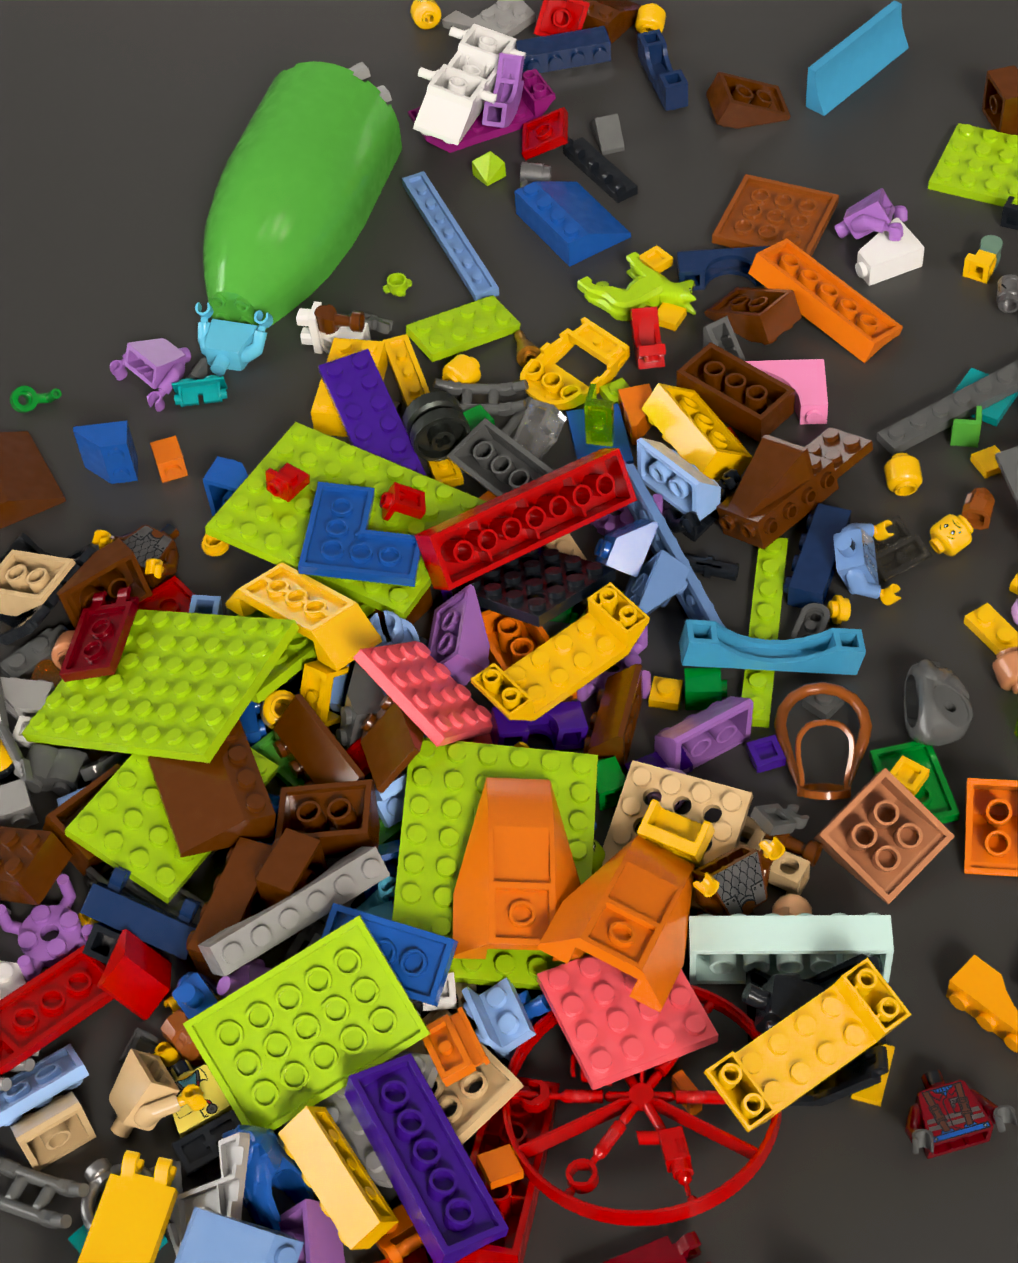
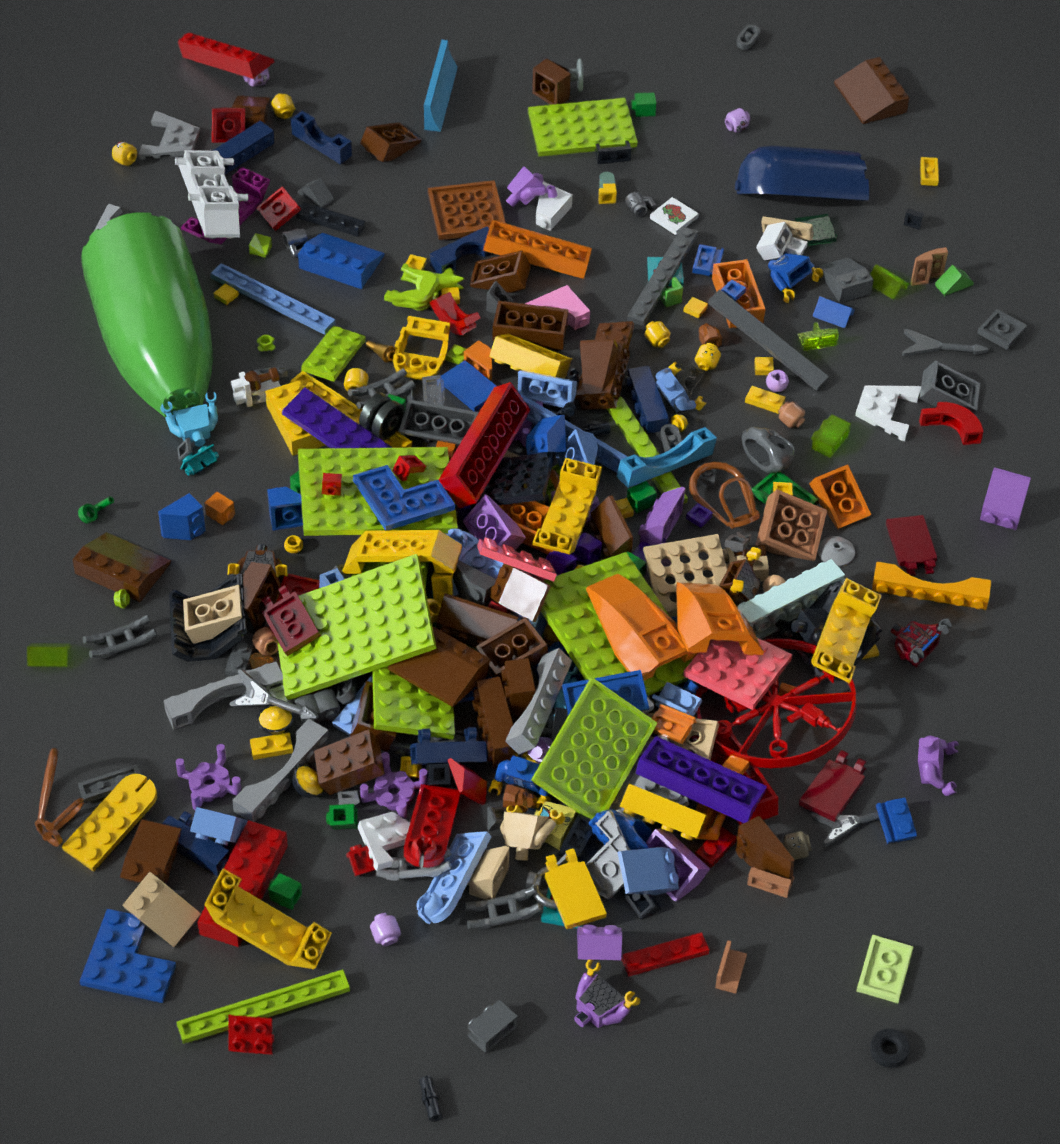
camera: 40 degrees left, 0 degrees up
(155, 363) = (158, 454): medium lavender torso -> none
(403, 210) = (226, 294): none -> yellow tile
(508, 90) = (236, 179): medium lavender arch -> none
(598, 419) = (470, 372): clear neon green panel -> none
(675, 832) = (696, 572): yellow panel -> none
(932, 917) = (837, 549): none -> light grey dish

